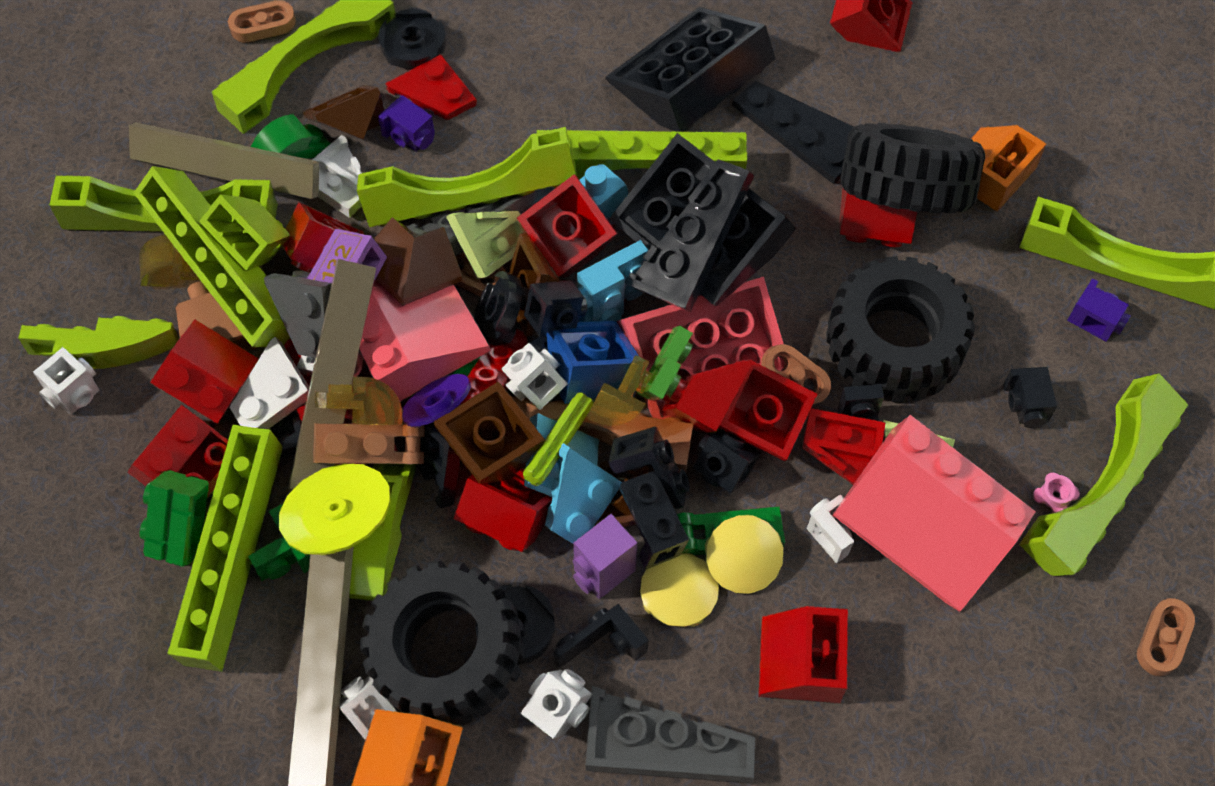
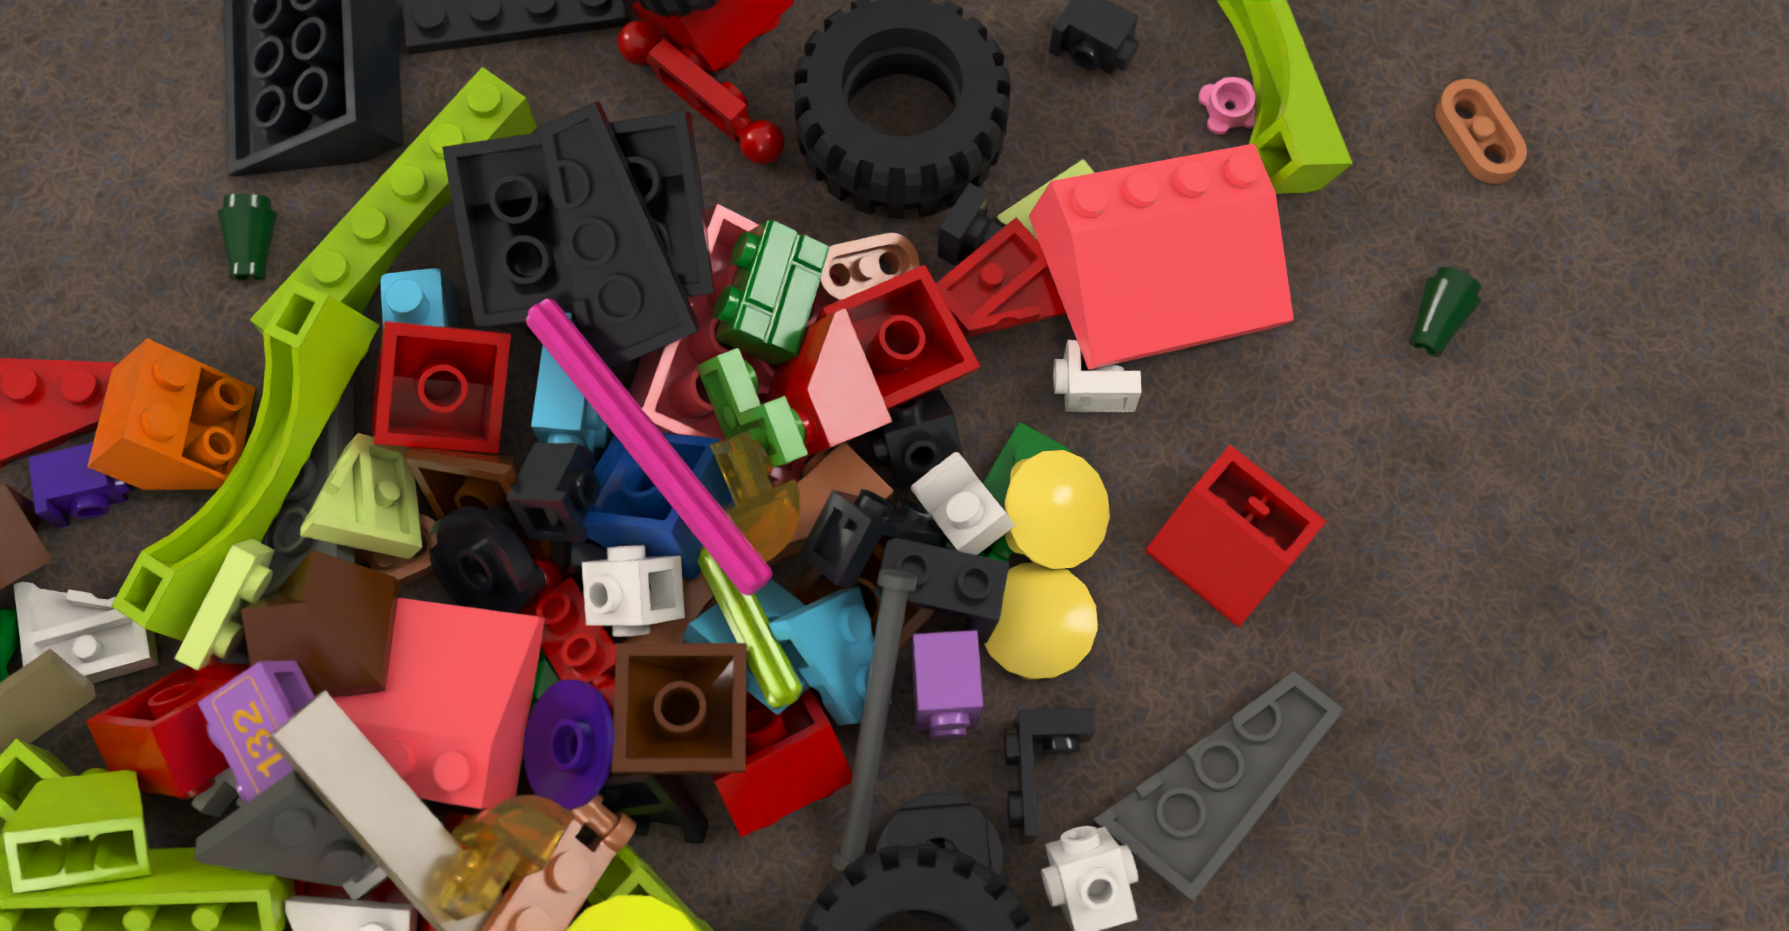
camera: 55 degrees left, 10 degrees up
(408, 209) = (219, 621): none -> yellowish green wing
(464, 137) = (170, 422): none -> orange slope
(581, 104) = (247, 234): none -> dark green cone
(606, 328) = (649, 447): none -> dark pink axle
(614, 495) = (874, 715): none -> dark grey bar
(706, 502) = (962, 505): none -> white bracket
(739, 333) = (770, 292): none -> brick
(824, 281) = (688, 78): none -> red plate
(1037, 686) = (1444, 309): none -> dark green cone

